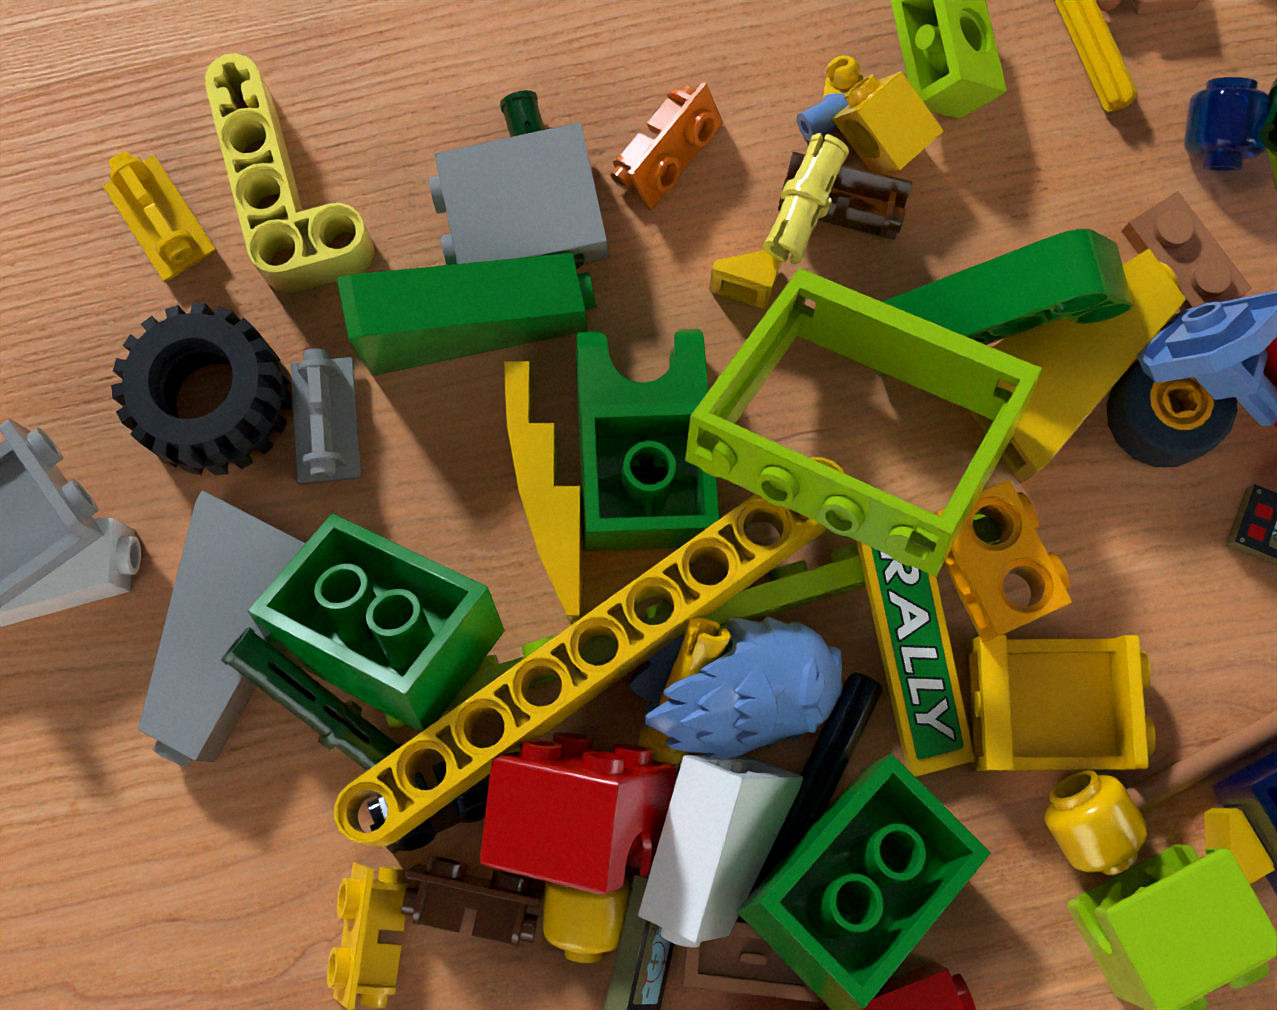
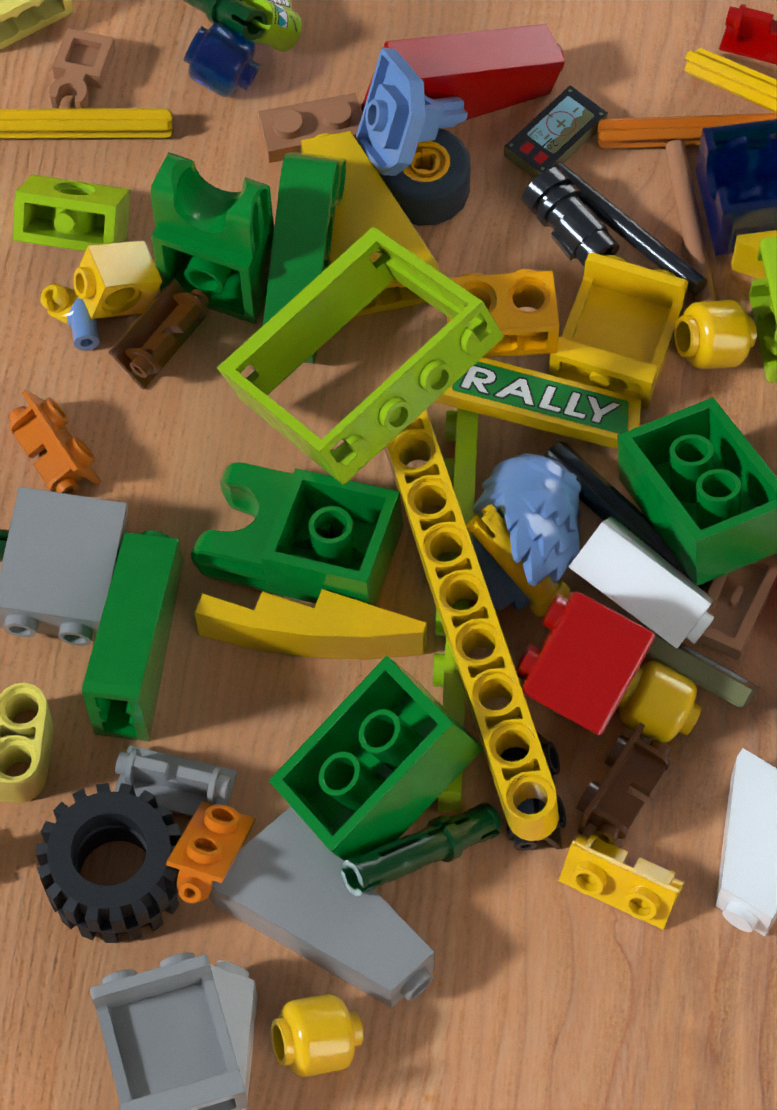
camera: 70 degrees left, 15 degrees down
(85, 667) = (316, 1035): none -> yellow head
(237, 480) = (208, 849): none -> orange hinge
(746, 277) = (198, 420): yellow slope -> none
(806, 198) = (160, 346): light yellow pin -> none
(964, 187) = (213, 238): none -> green brick
(1181, 602) = (574, 223): none -> black axle
(1201, 669) = (635, 234): none -> black bar

